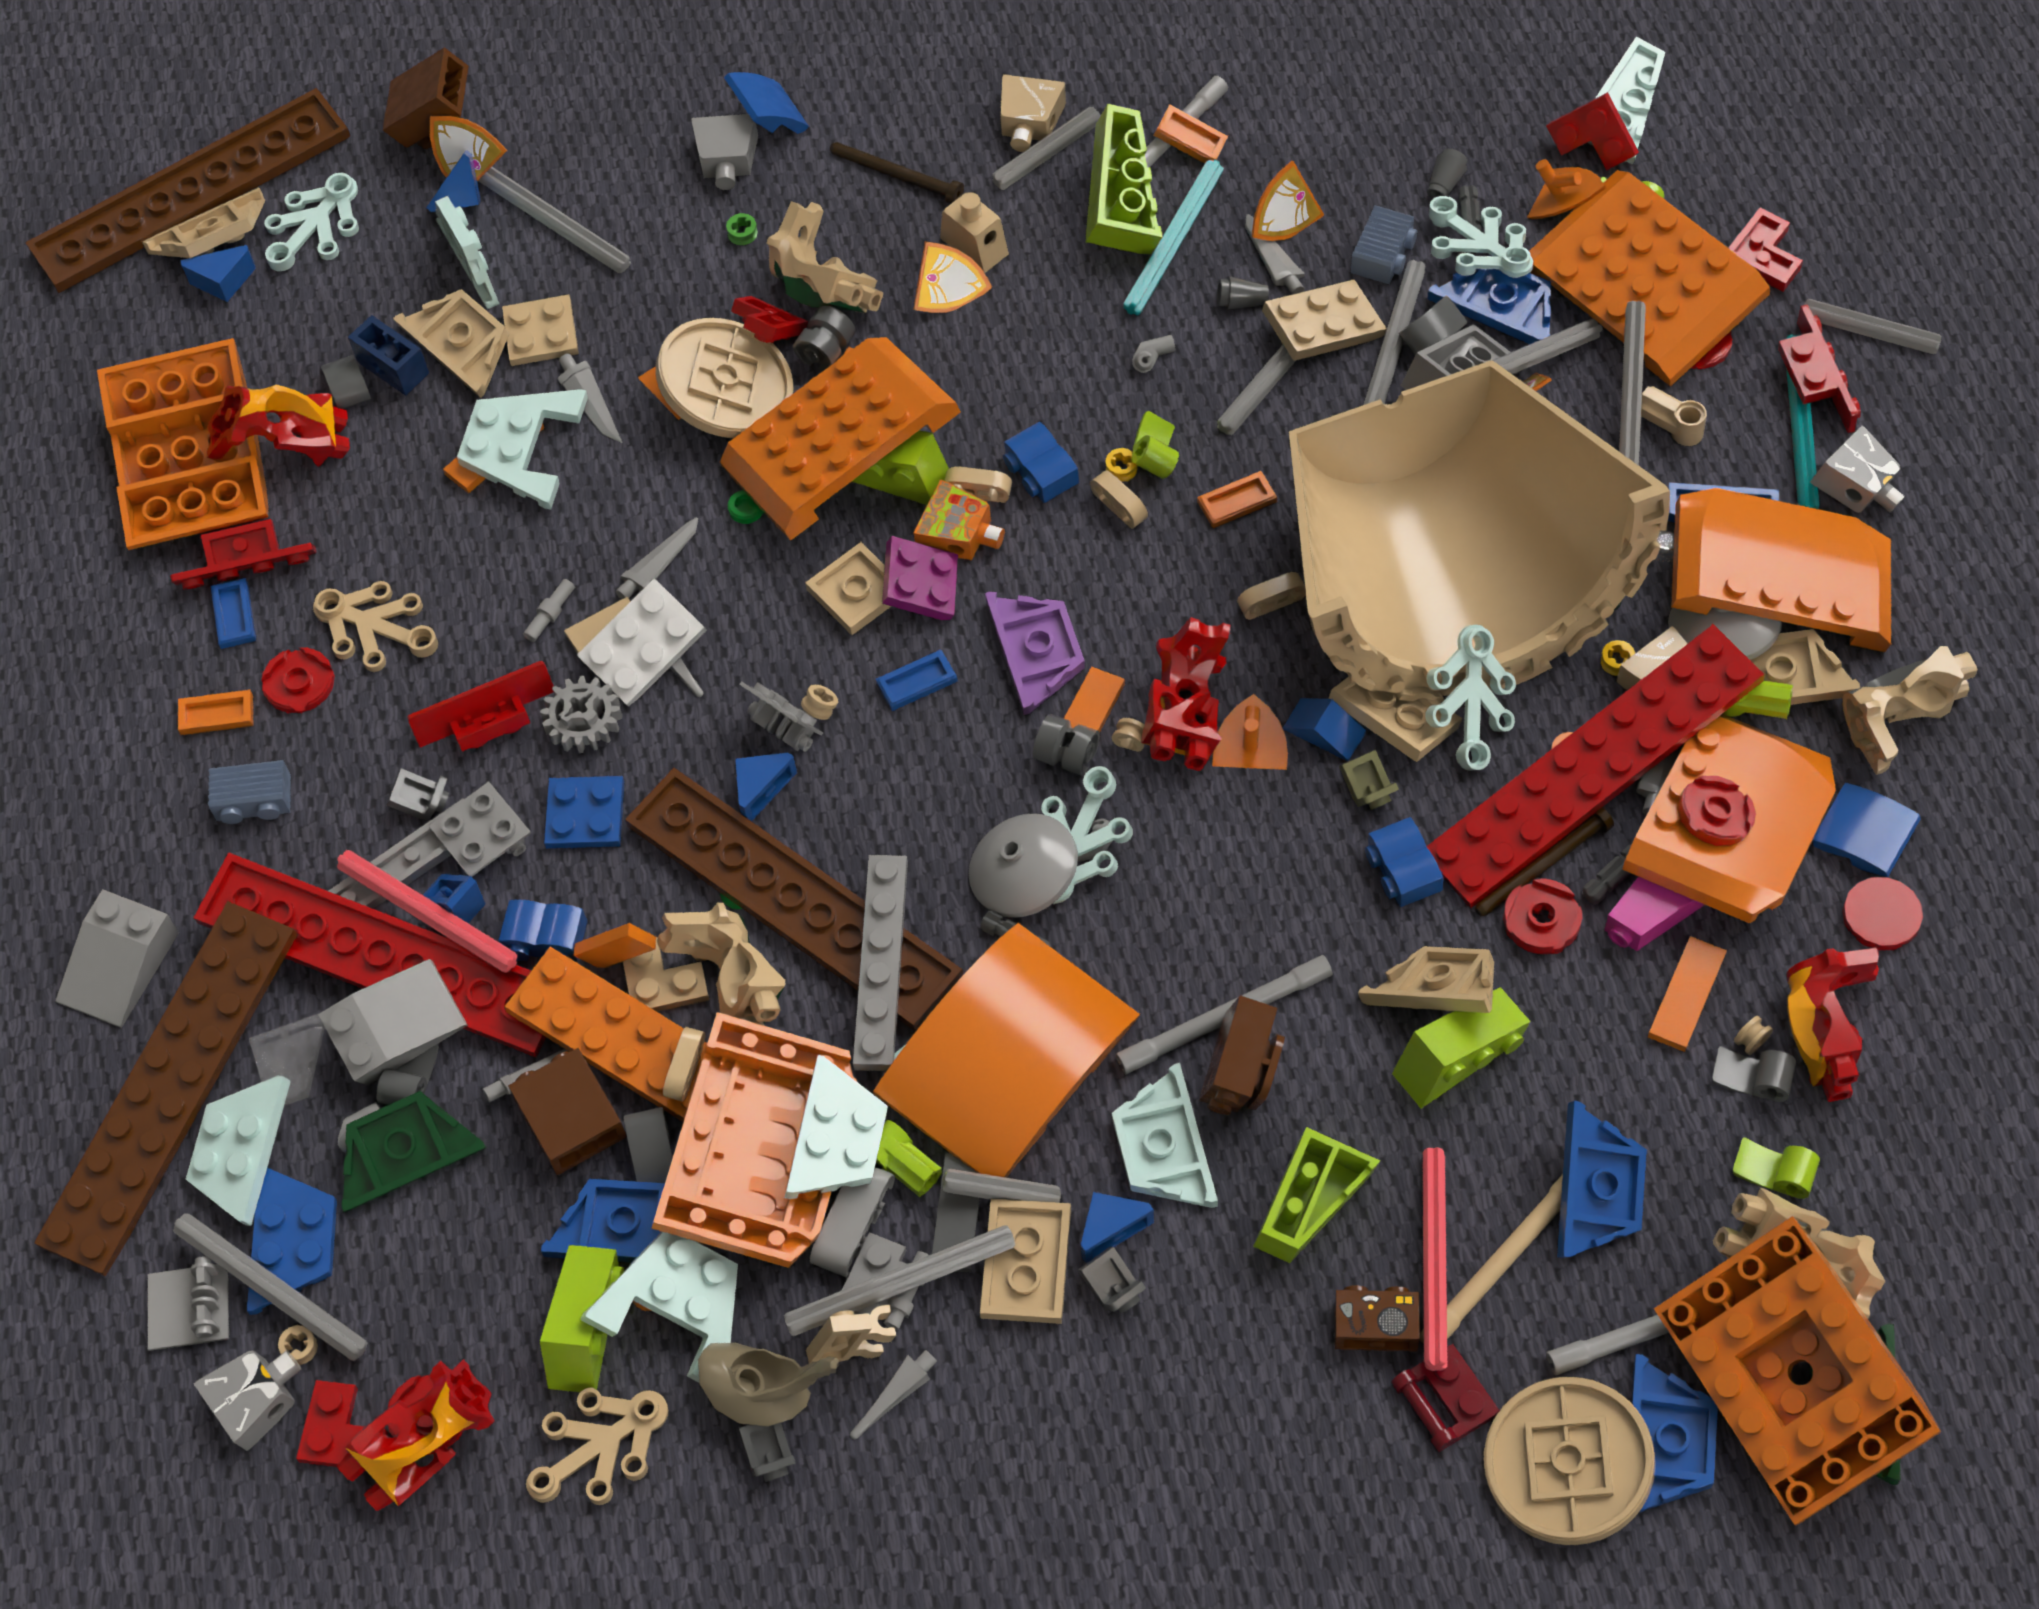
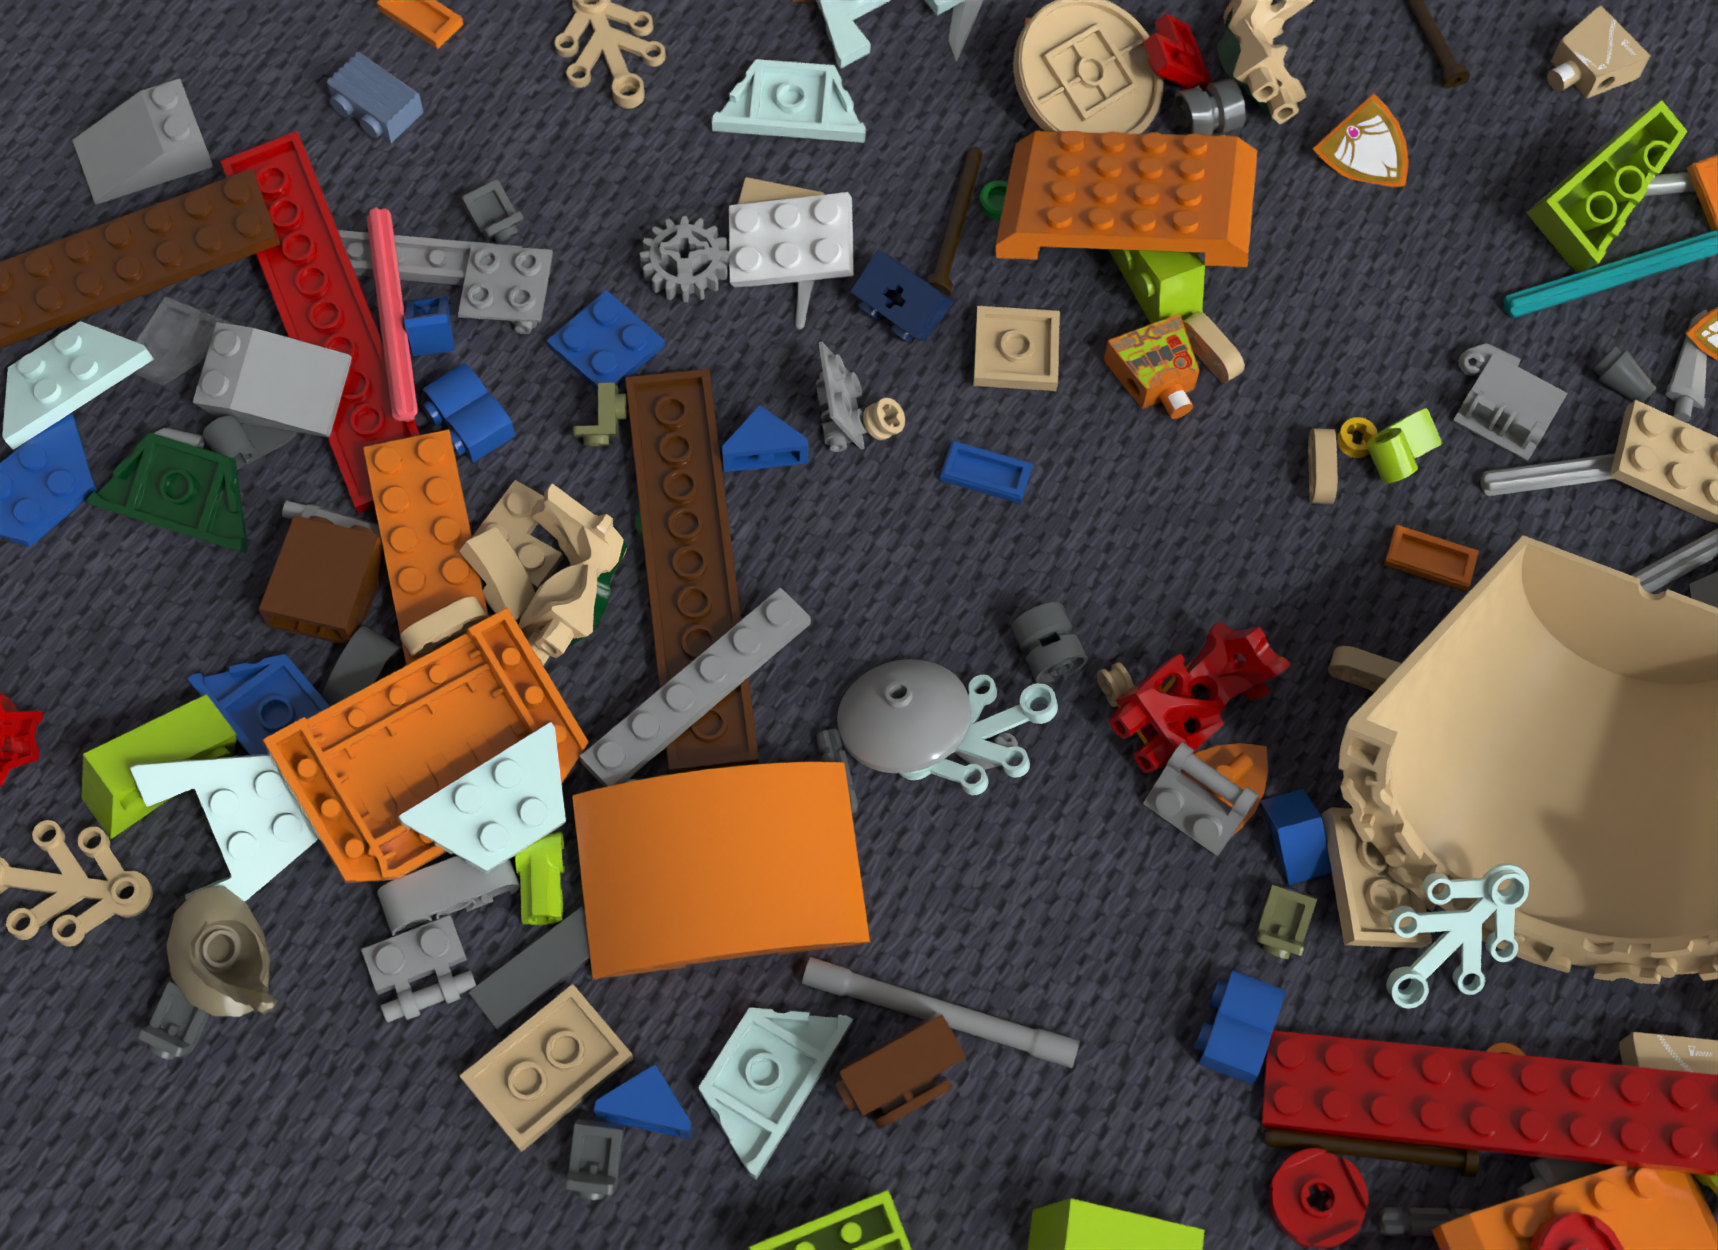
camera: 35 degrees right, 5 degrees up
(303, 689) = (507, 52): red tile -> none
(484, 710) = (613, 188): red bracket -> none
(542, 556) = (791, 102): none -> light aqua wing
(549, 610) = (752, 150): light grey bar -> none
(615, 946) = (502, 476): orange tile -> none
(638, 847) = (610, 409): none -> olive bracket
(656, 561) = (875, 184): light grey bar -> none
(672, 1000) = (502, 572): none -> tan slope
(732, 609) = (923, 305): none -> dark blue brick
(763, 590) = (955, 223): none -> dark brown bar
(847, 1333) = (325, 986): tan plate -> none
(900, 1279) = (423, 982): light grey axle -> none
(905, 1381) = (345, 1073): light grey piece -> none
(920, 578) = (1075, 386): magenta plate -> none
(974, 231) = (1432, 109): tan torso -> none
(998, 1187) = (589, 983): light grey axle -> none
(1036, 646) = (1116, 532): medium lavender wing -> none
(1041, 462) = (1286, 374): blue brick -> none
(1046, 148) = (1574, 102): light grey axle -> none
(1095, 699) = (1116, 626): orange tile -> none
(1193, 369) = (1510, 407): none -> light grey hinge
(1253, 763) = (1195, 808): none -> light grey plate
(1438, 981) = (1154, 1170): tan wing -> none
(1608, 663) = (1656, 1022): yellow bush -> none

